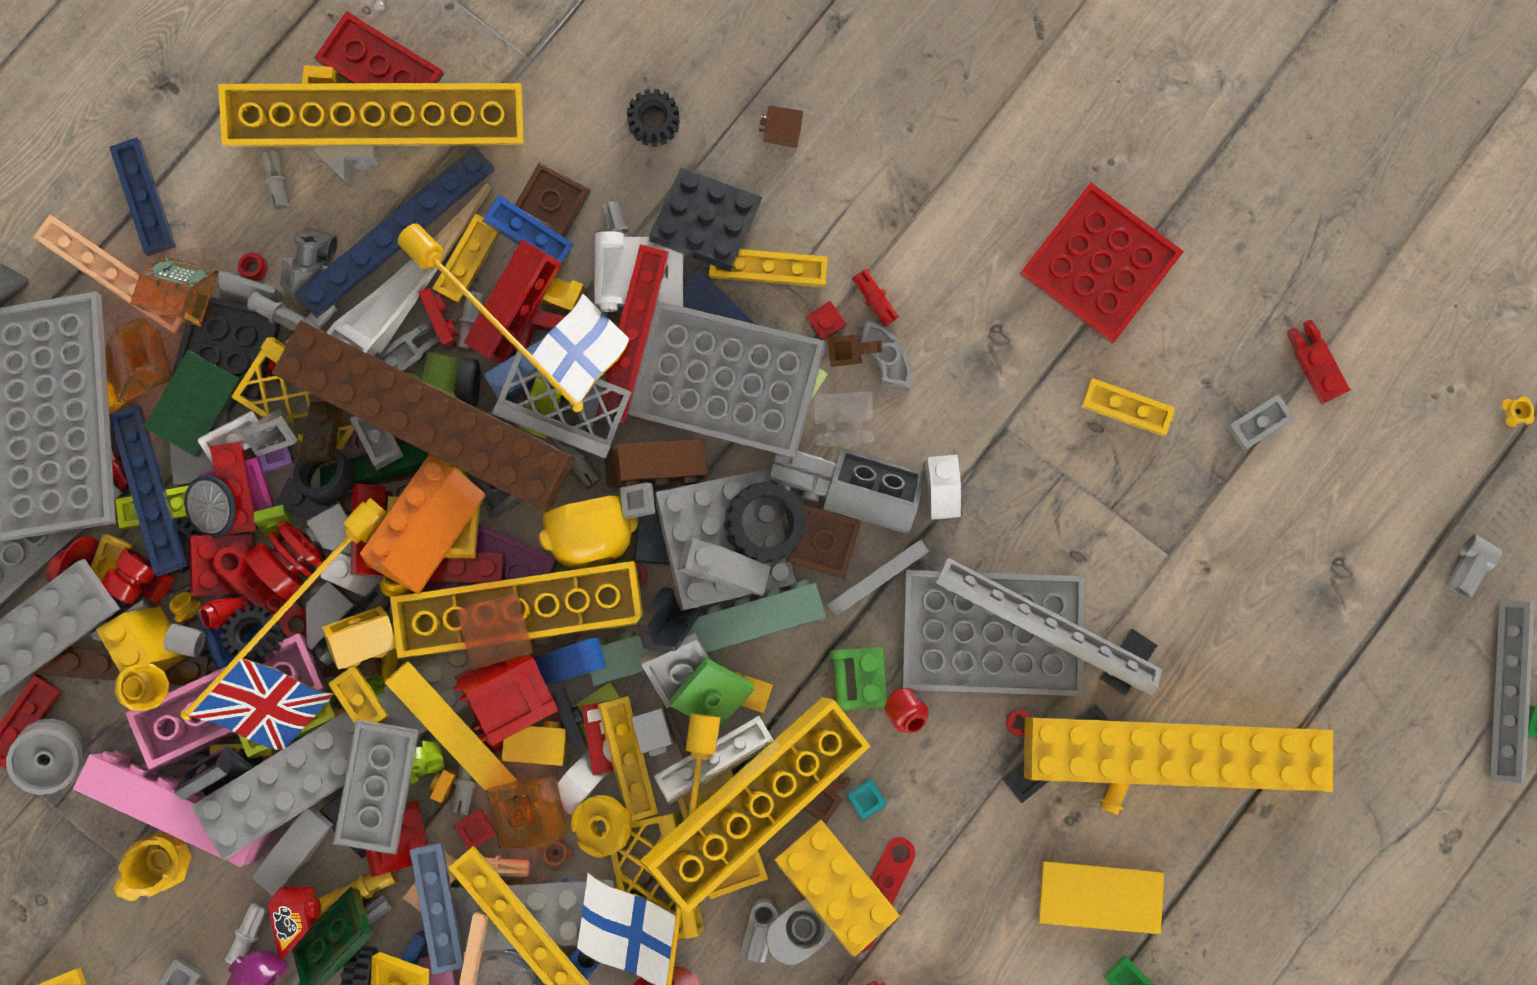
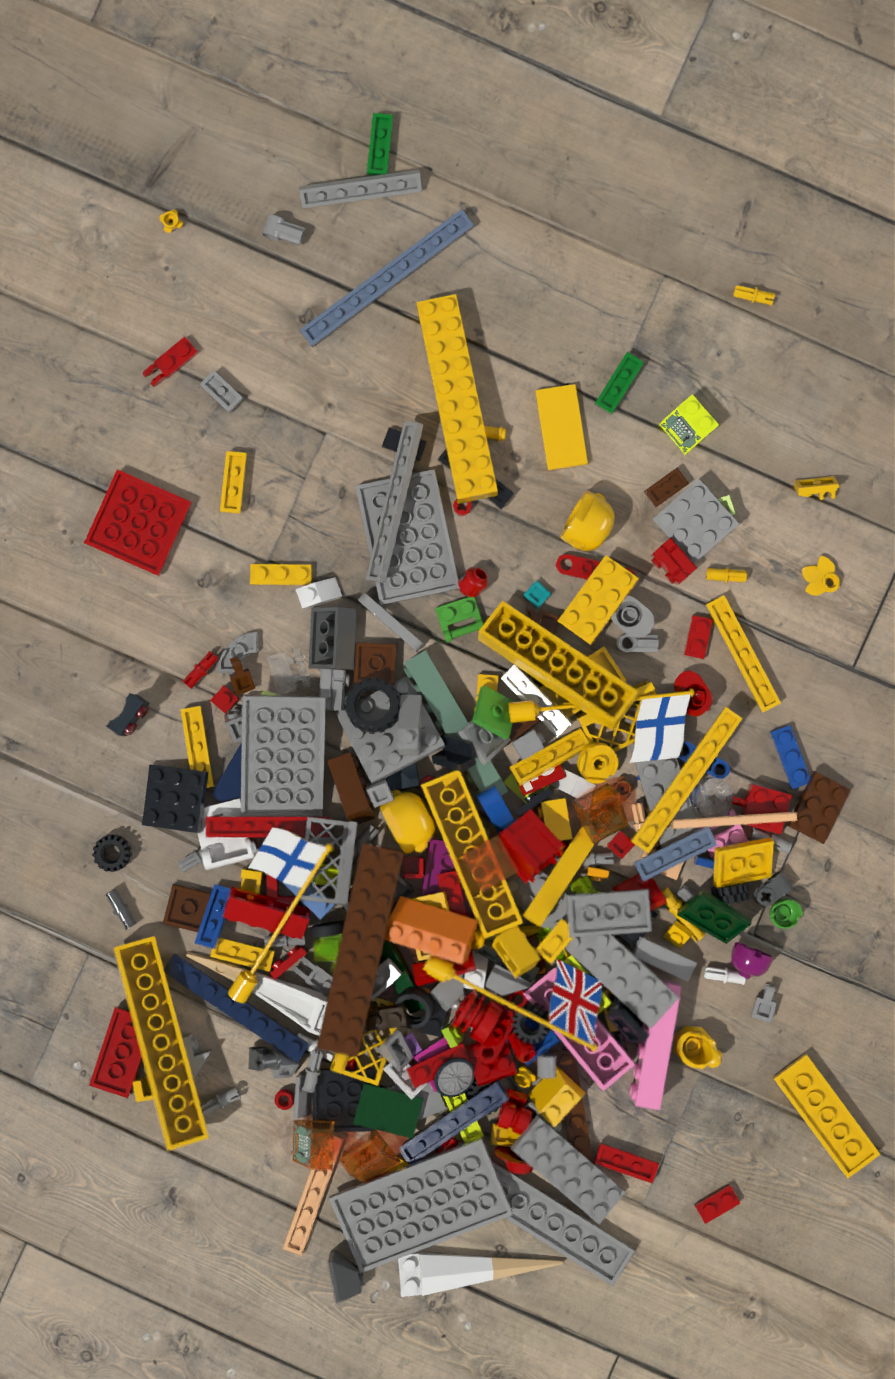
camera: 95 degrees left, 5 degrees up
(27, 762) = (646, 1126): light grey wheel -> none
(141, 687) = (583, 1083): yellow hair -> none
(142, 196) = (254, 1188): dark blue plate -> none
(292, 915) = (704, 946): slope -> none
(325, 879) = (677, 934): none -> yellow plate
(522, 523) = (413, 866): none -> red panel
(573, 110) = (120, 909): none -> dark grey pin
(781, 126) = (96, 763): reddish brown brick -> none
(788, 322) = (233, 721): none -> light grey bracket
(841, 189) = (126, 722): none -> black brick
(953, 903) = (589, 522): none -> yellow piece
(982, 441) = (280, 574): none -> yellow plate
(1375, 699) = (387, 278): none -> sand blue plate

